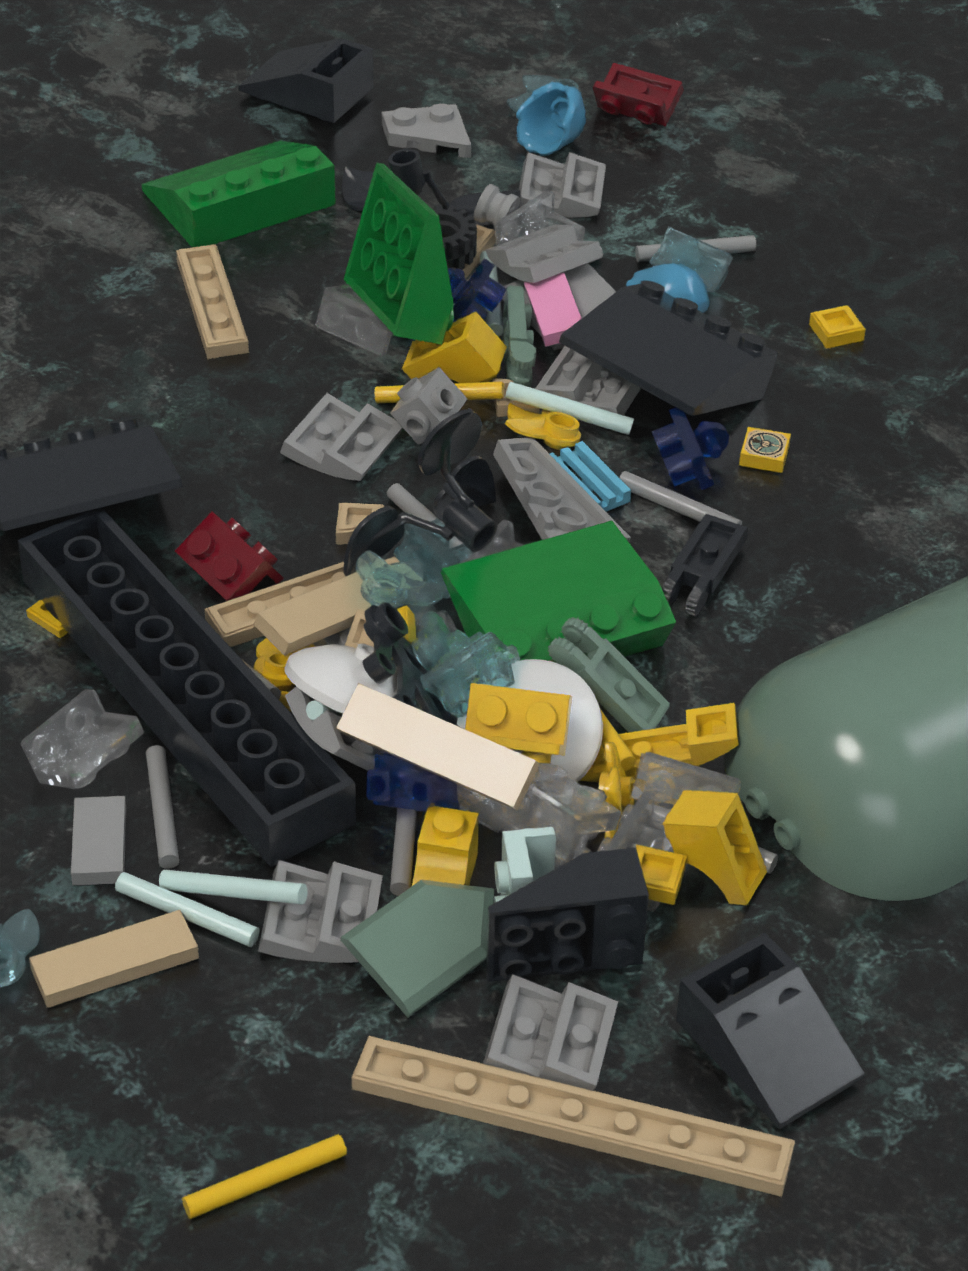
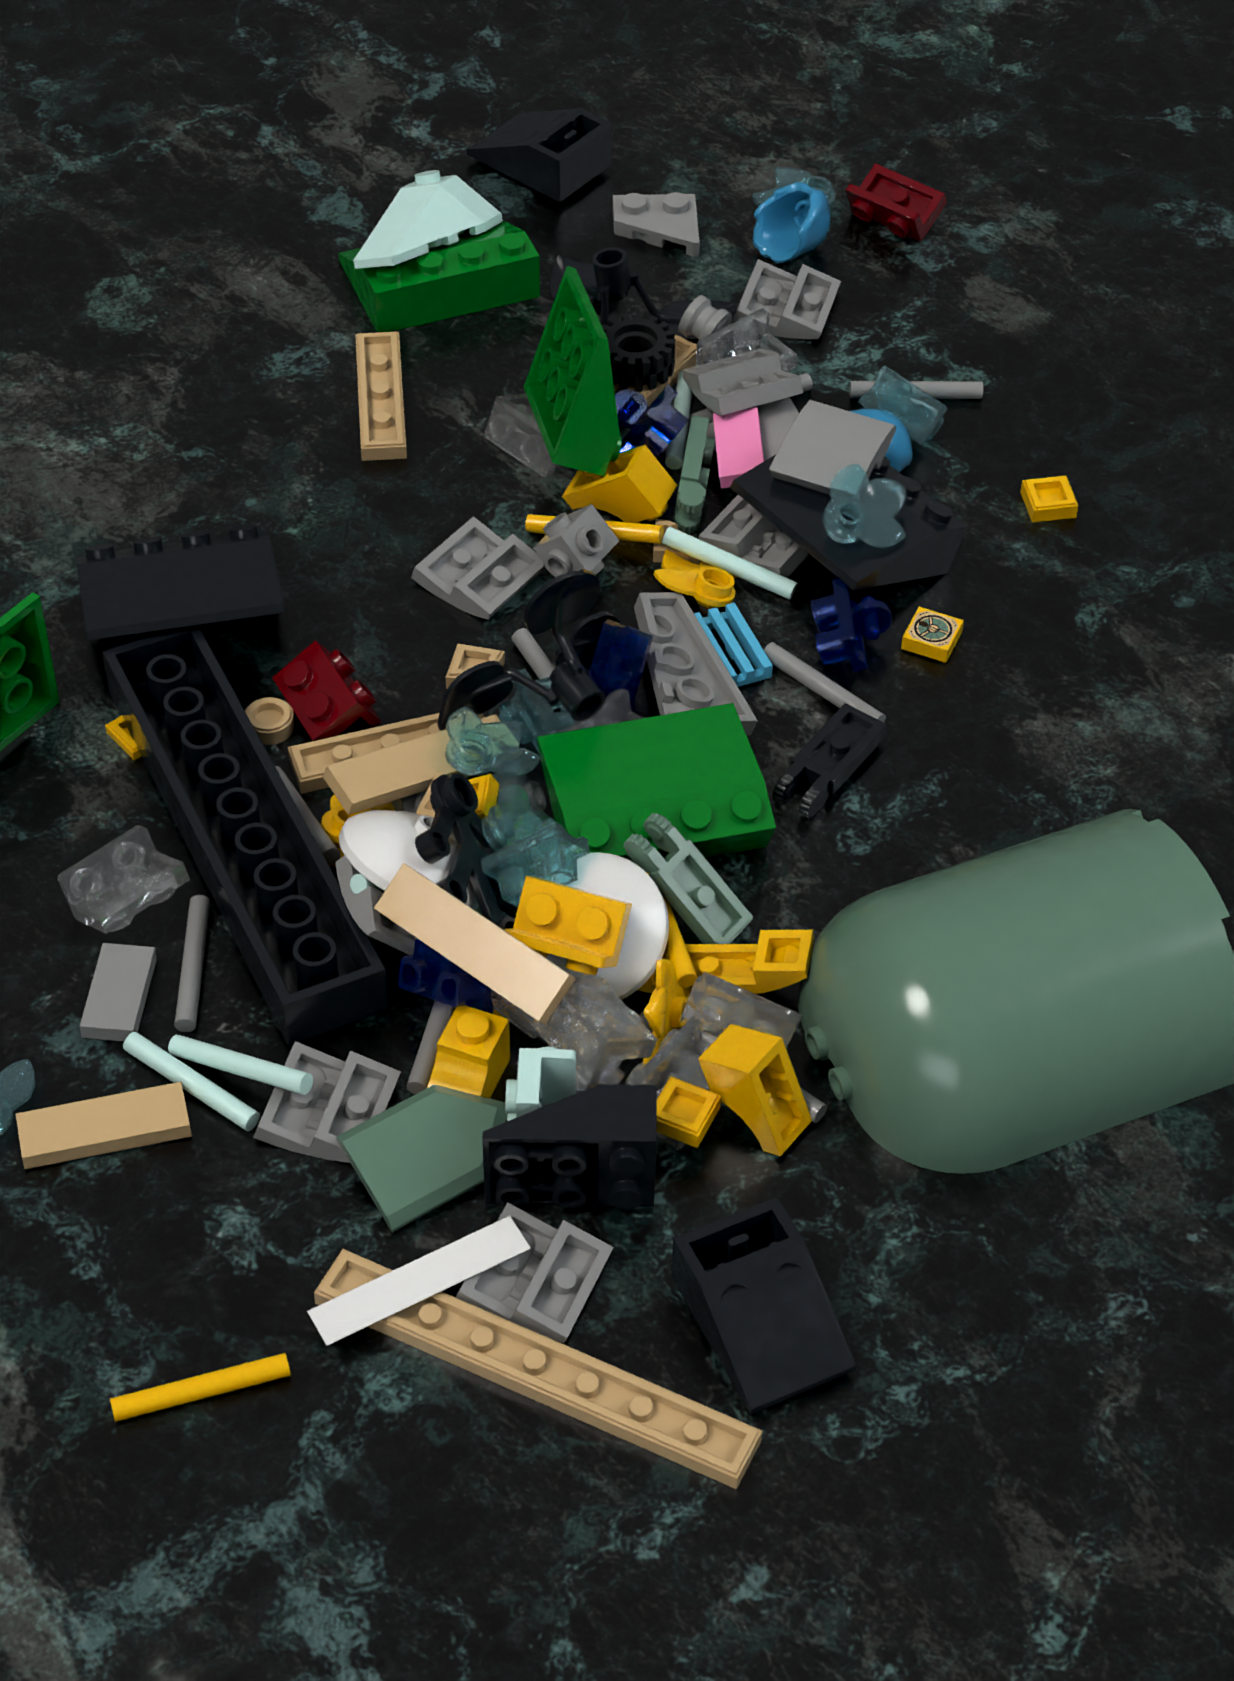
camera: 10 degrees right, 5 degrees up
(188, 583) = (271, 719): none -> tan tile
(221, 141) = (426, 216): none -> light aqua wedge
(447, 1053) = (418, 1280): none -> white sticker
(499, 491) = (620, 658): none -> clear blue hips
(647, 299) = (826, 442): none -> light grey slope
(688, 344) = (868, 504): none -> clear light blue plate

